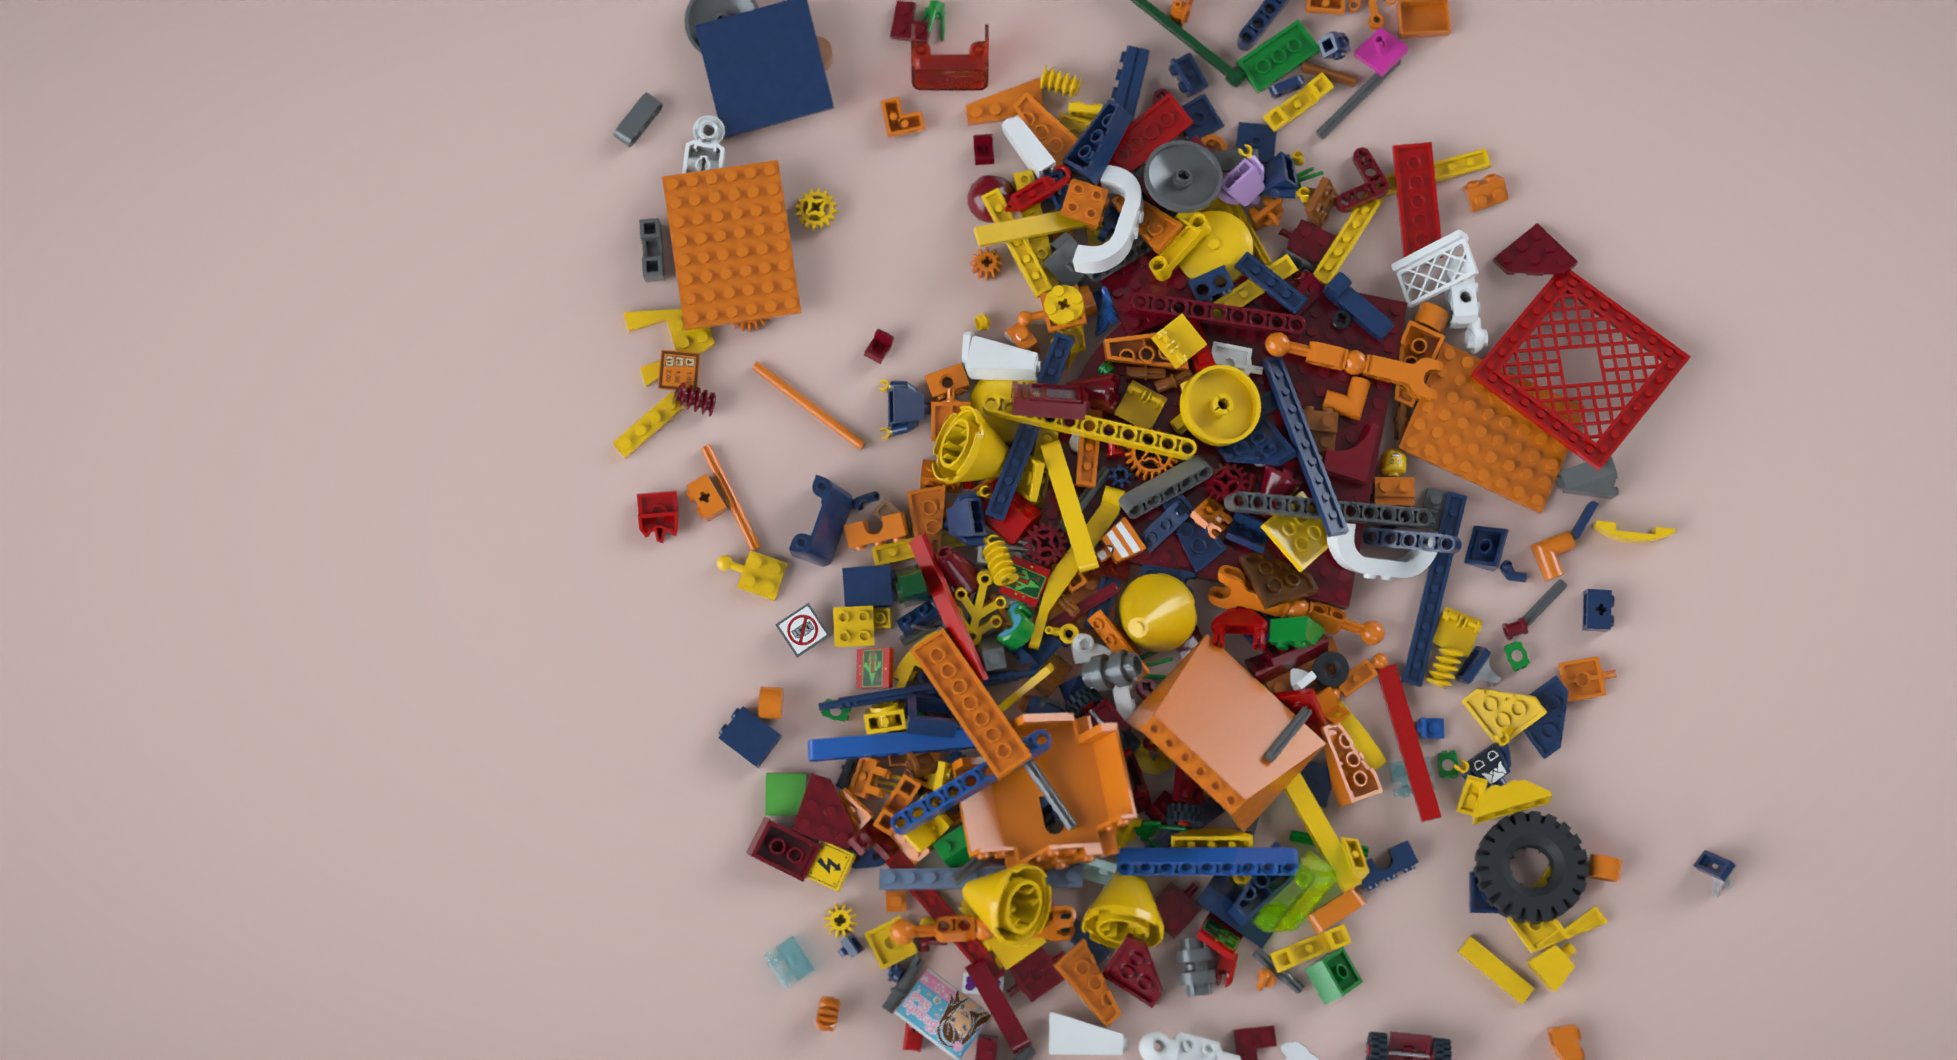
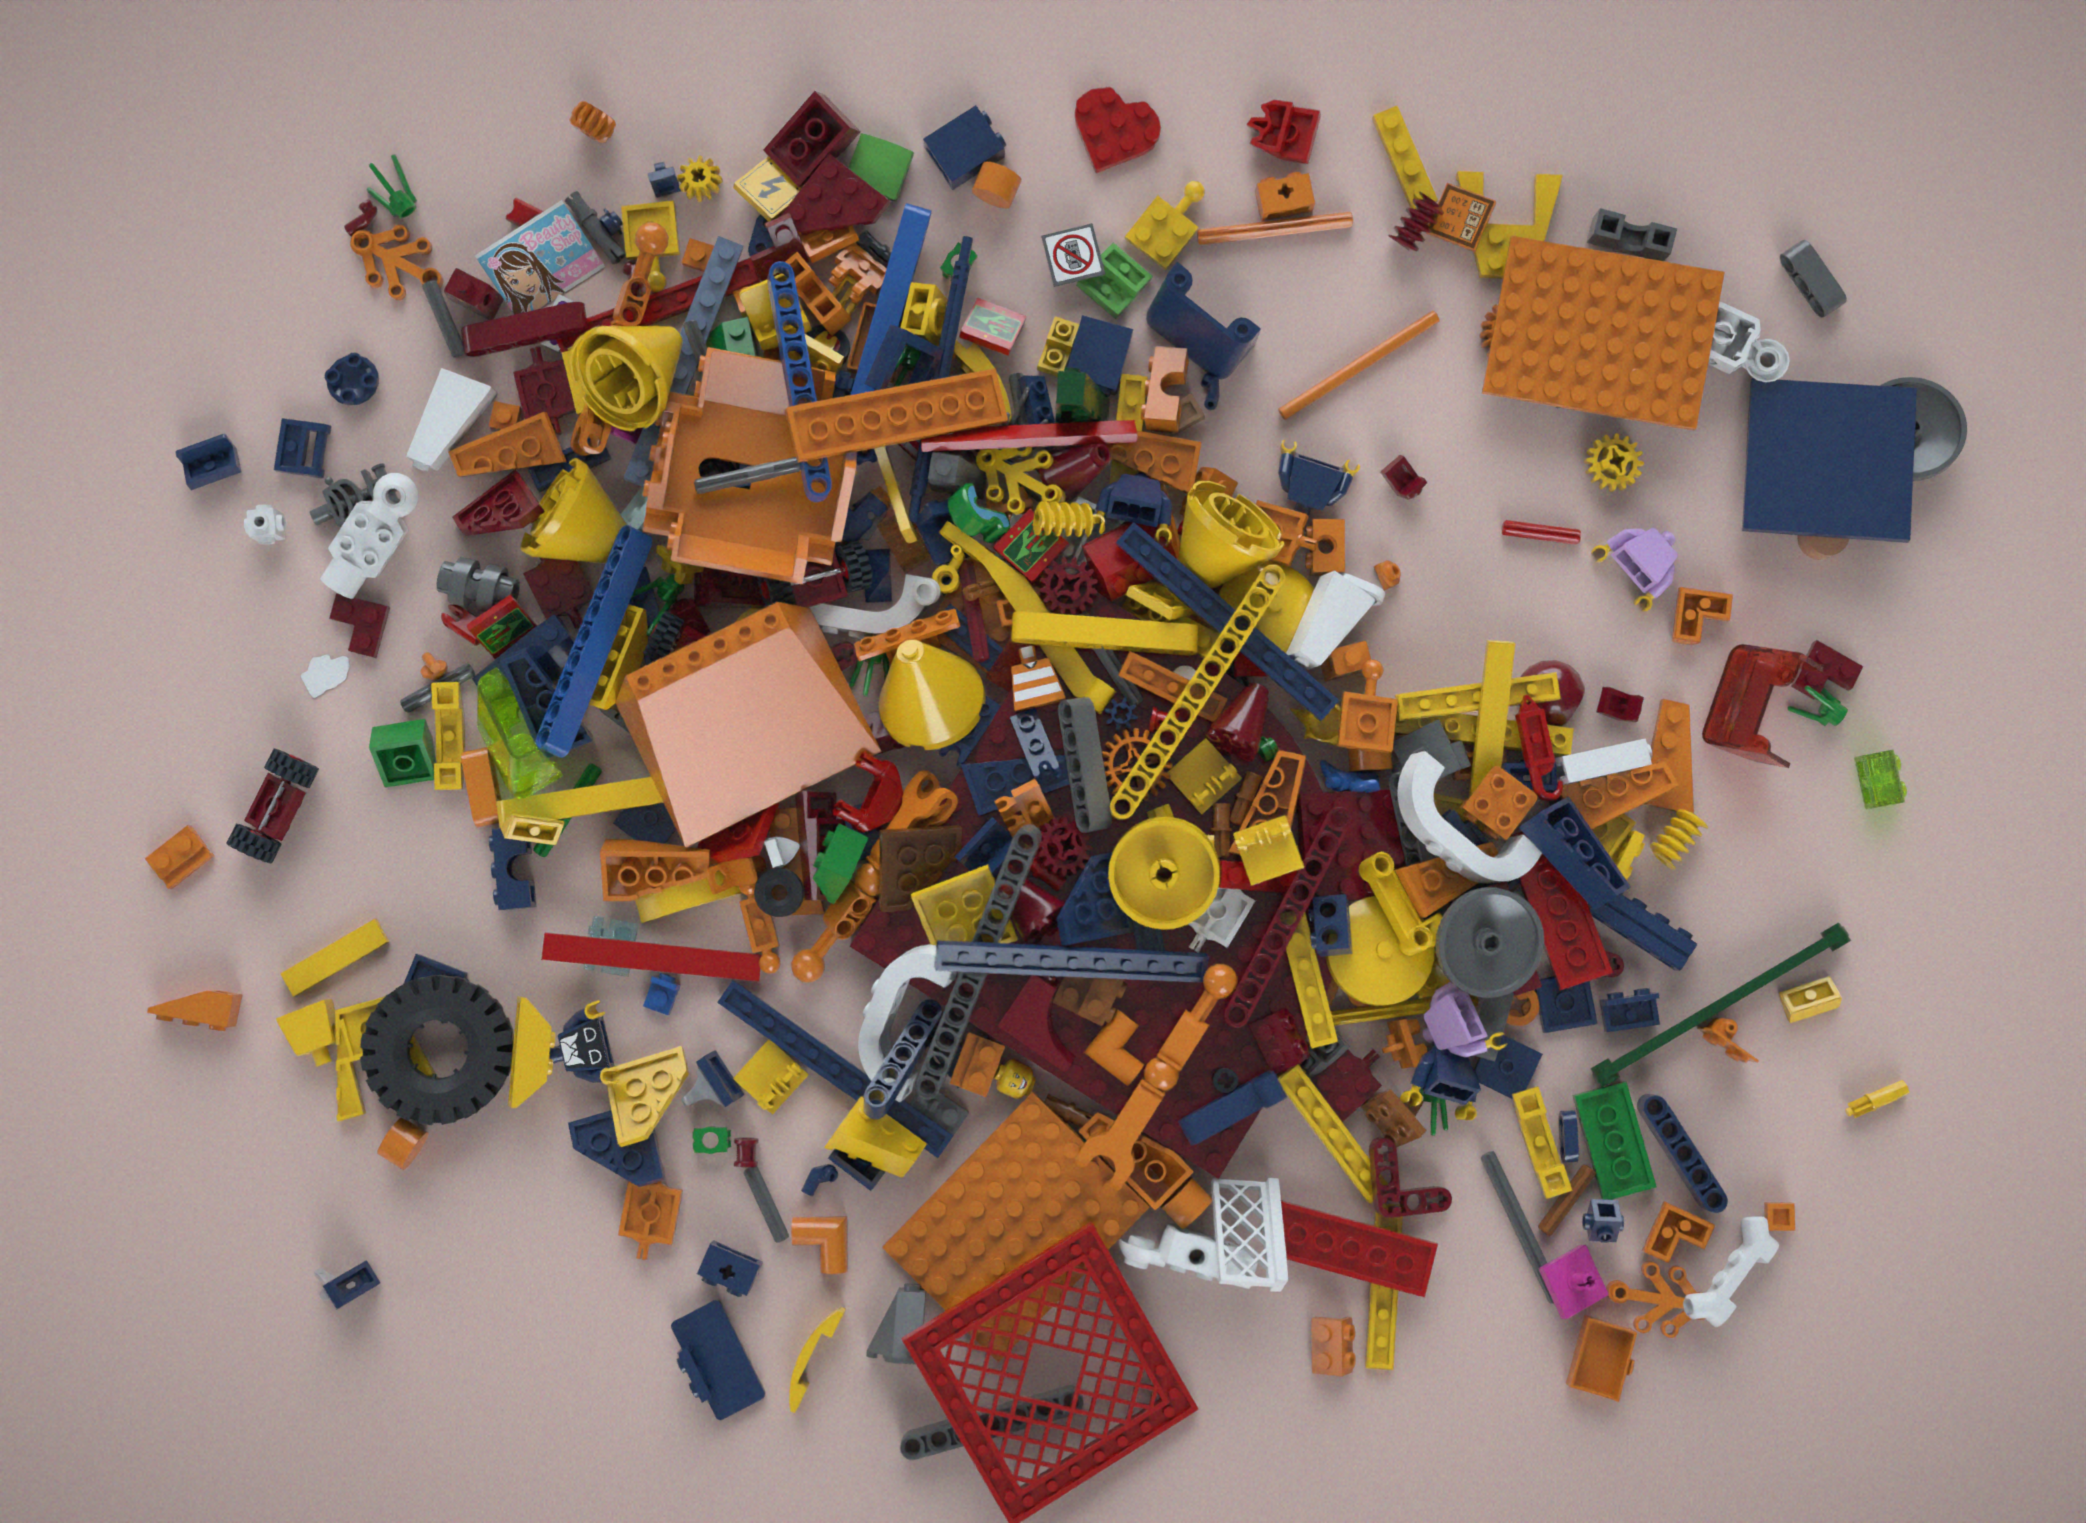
camera: 110 degrees right, 5 degrees up
(698, 636) = (1113, 129): none -> red plate
(795, 960) = (675, 110): clear light blue plate -> none
(809, 590) = (1119, 285): none -> bright green slope
(853, 626) = (1054, 319): yellow hinge -> none
(877, 165) = (1645, 559): none -> lavender torso
(882, 242) = (1541, 532): none -> red axle
(921, 764) = (849, 336): dark orange bracket -> none
(949, 335) = (1388, 574): none -> orange plate
(979, 264) = (1455, 656): orange gear -> none
(982, 322) = (1389, 621): yellow plate -> none
(1049, 400) = (1247, 649): dark red door -> none
(1060, 294) = (1372, 738): yellow plate -> none
(1065, 998) = (504, 415): none -> orange plate
(1107, 671) = (875, 611): dark grey piece -> none
(1271, 283) = (1304, 1003): dark blue tile -> none
(1288, 734) = (710, 798): dark grey axle -> none
(1444, 668) = (728, 1042): yellow piece -> none
(1452, 755) = (599, 989): green piece -> none
(1471, 794) = (557, 1010): yellow plate -> none
(1474, 532) = (877, 1140): none -> yellow wedge
(1535, 255) = (1223, 1378): dark red plate -> none
(1584, 519) = (852, 1298): dark blue tile -> none
(1650, 417) = (930, 1447): none -> dark grey beam
(1662, 596) = (716, 1361): none -> dark blue bracket

